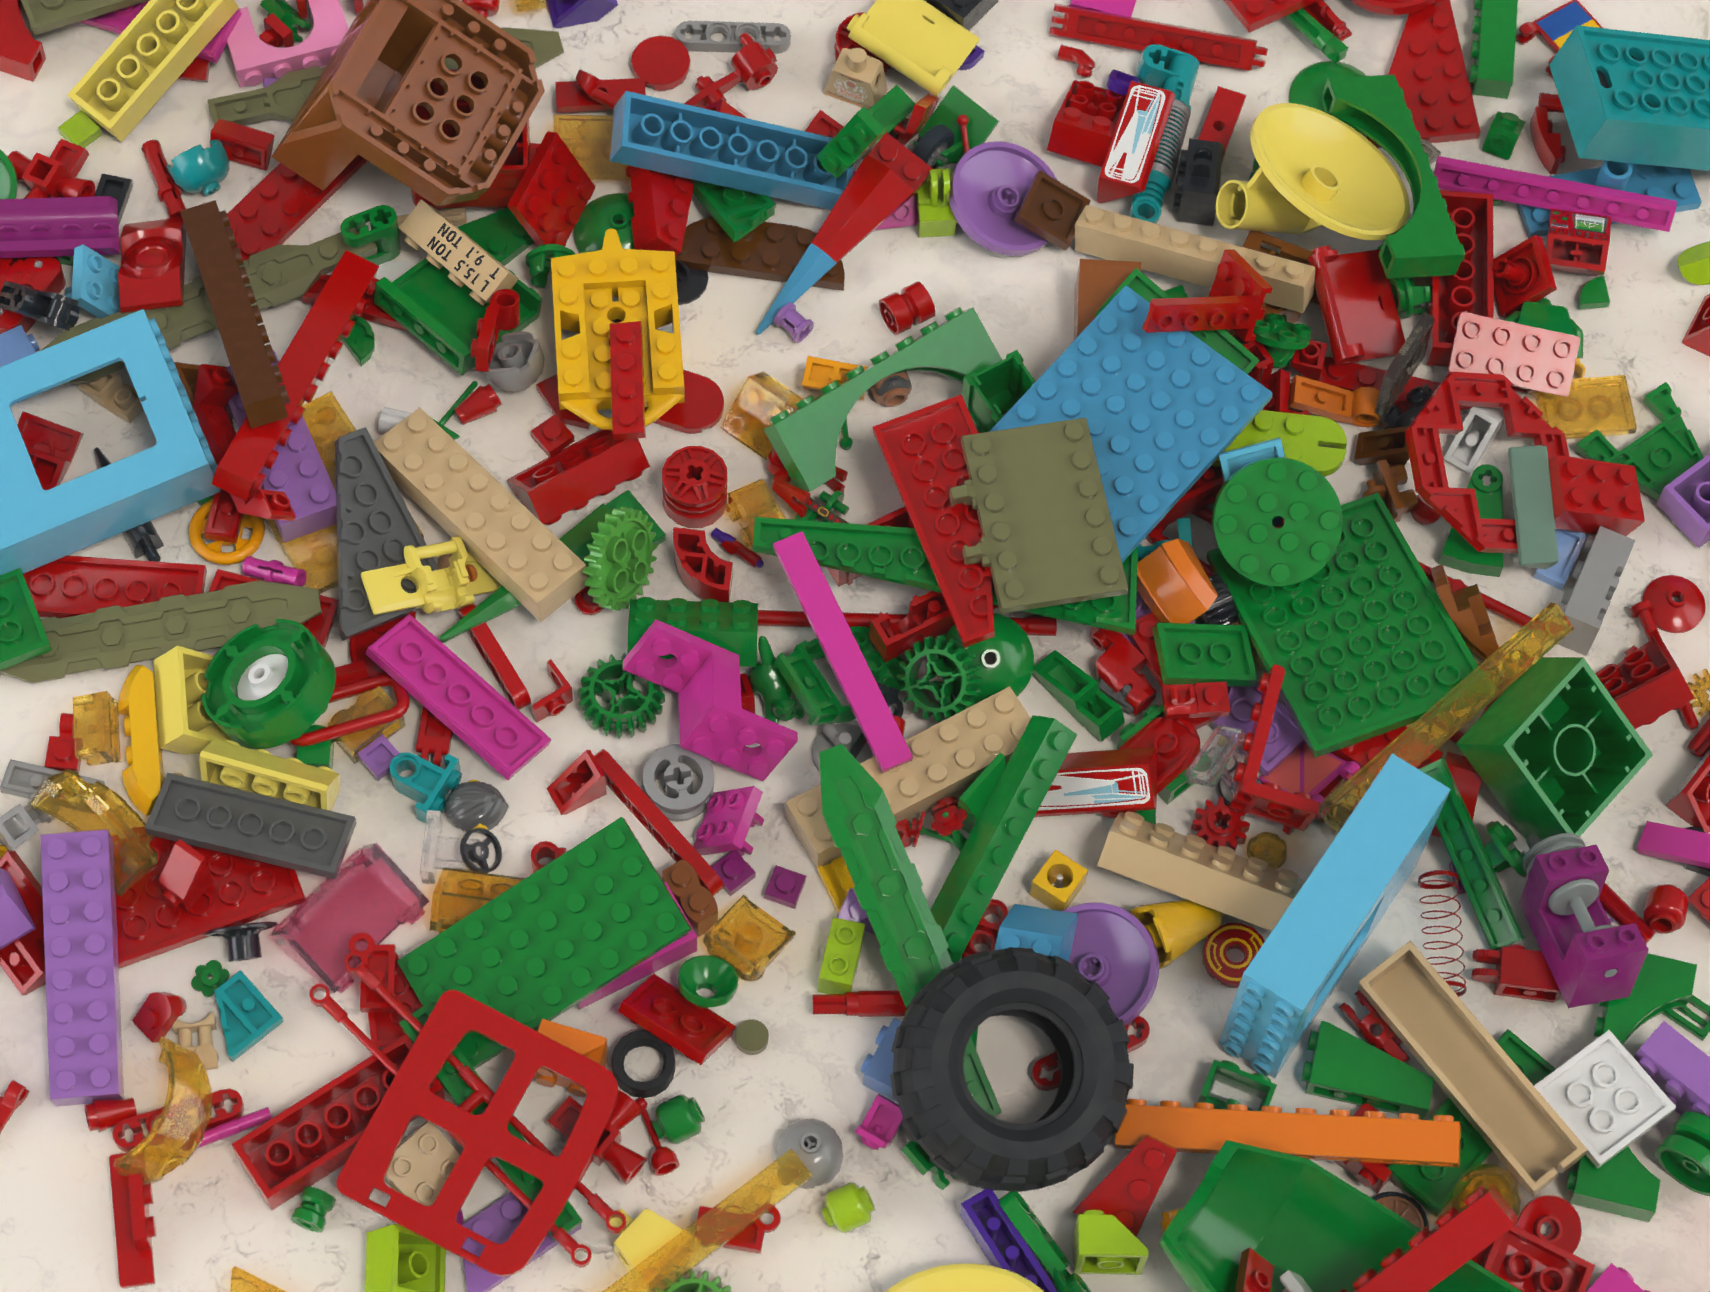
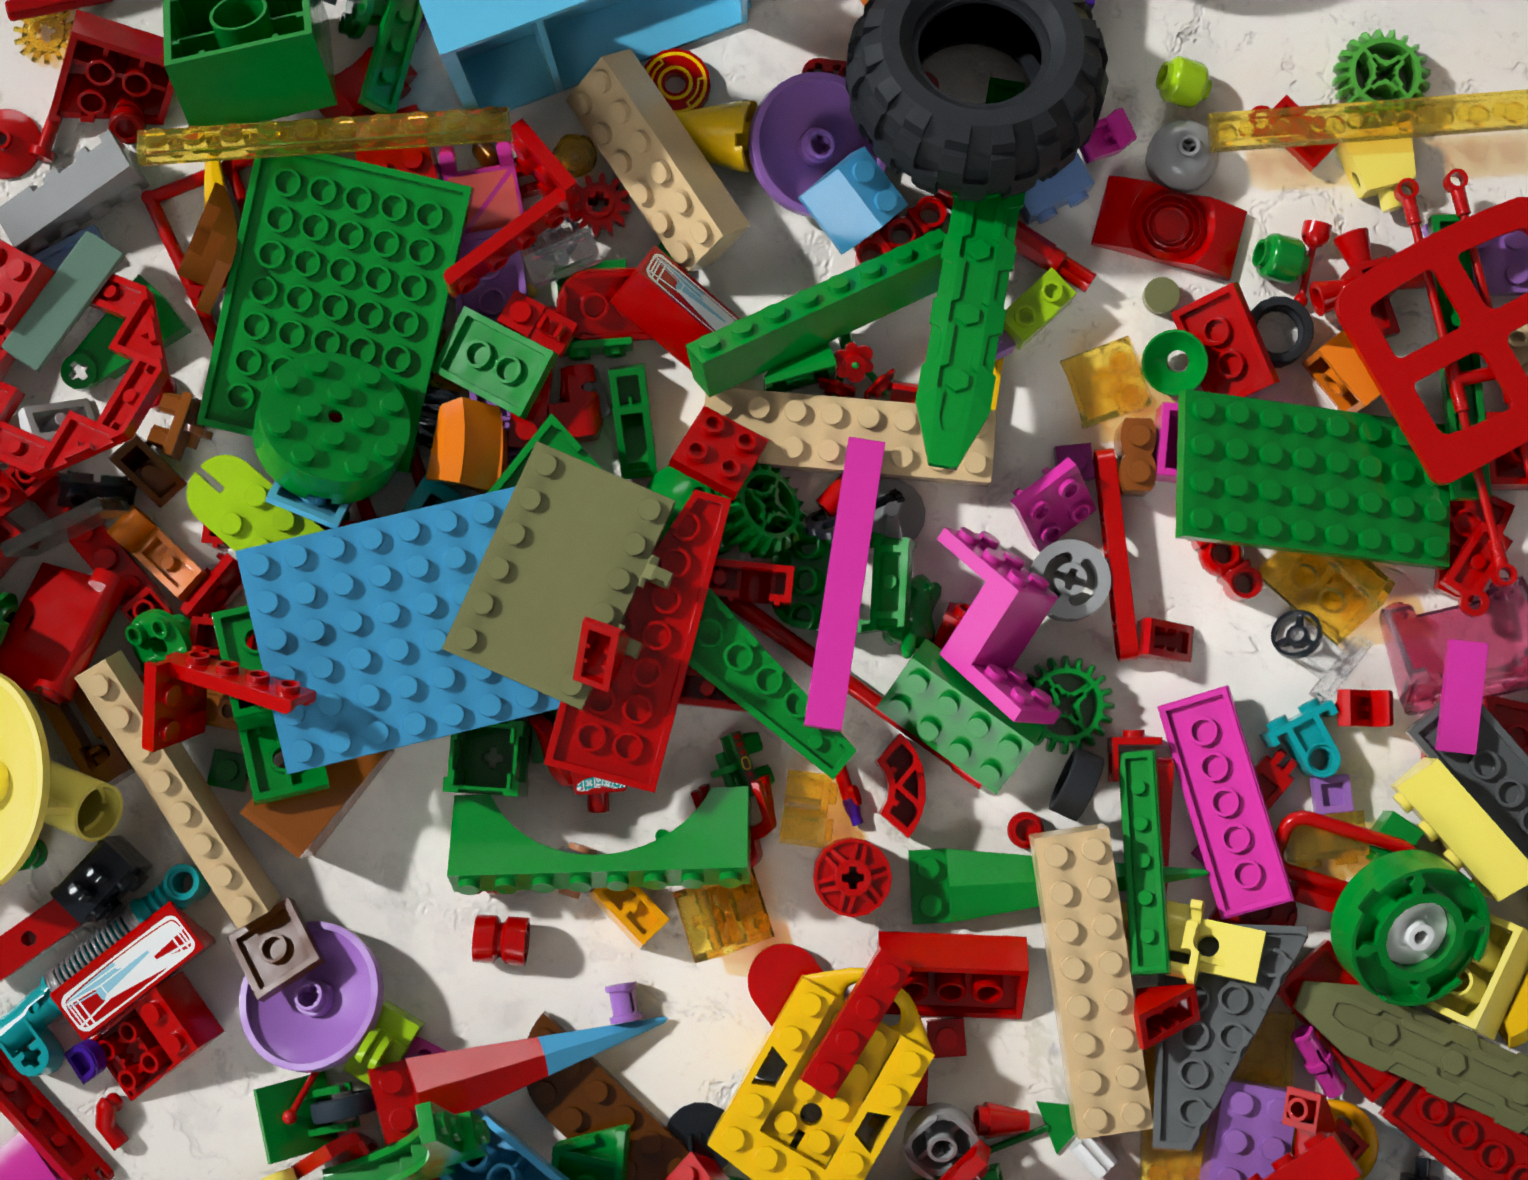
camera: 140 degrees left, 20 degrees up
(332, 859) = (1461, 696): none -> dark pink tile
(397, 827) = (1364, 708): none -> red bracket
(416, 514) = (1163, 1012): none -> red slope
(475, 806) = (1272, 684): dark grey hair -> none
(493, 612) = (1144, 863): none -> green tile
(576, 641) = (1076, 784): none -> black tyre
(620, 558) = (985, 836): bright green gear -> none
(781, 1092) = (1169, 226): none -> red slope
(785, 887) = (1035, 417): magenta plate -> none
(977, 470) = (599, 653): none -> red slope
(997, 683) = (718, 452): none -> red plate
(1058, 882) = (787, 249): yellow piece -> none
(1602, 662) = (125, 123): none -> red tile

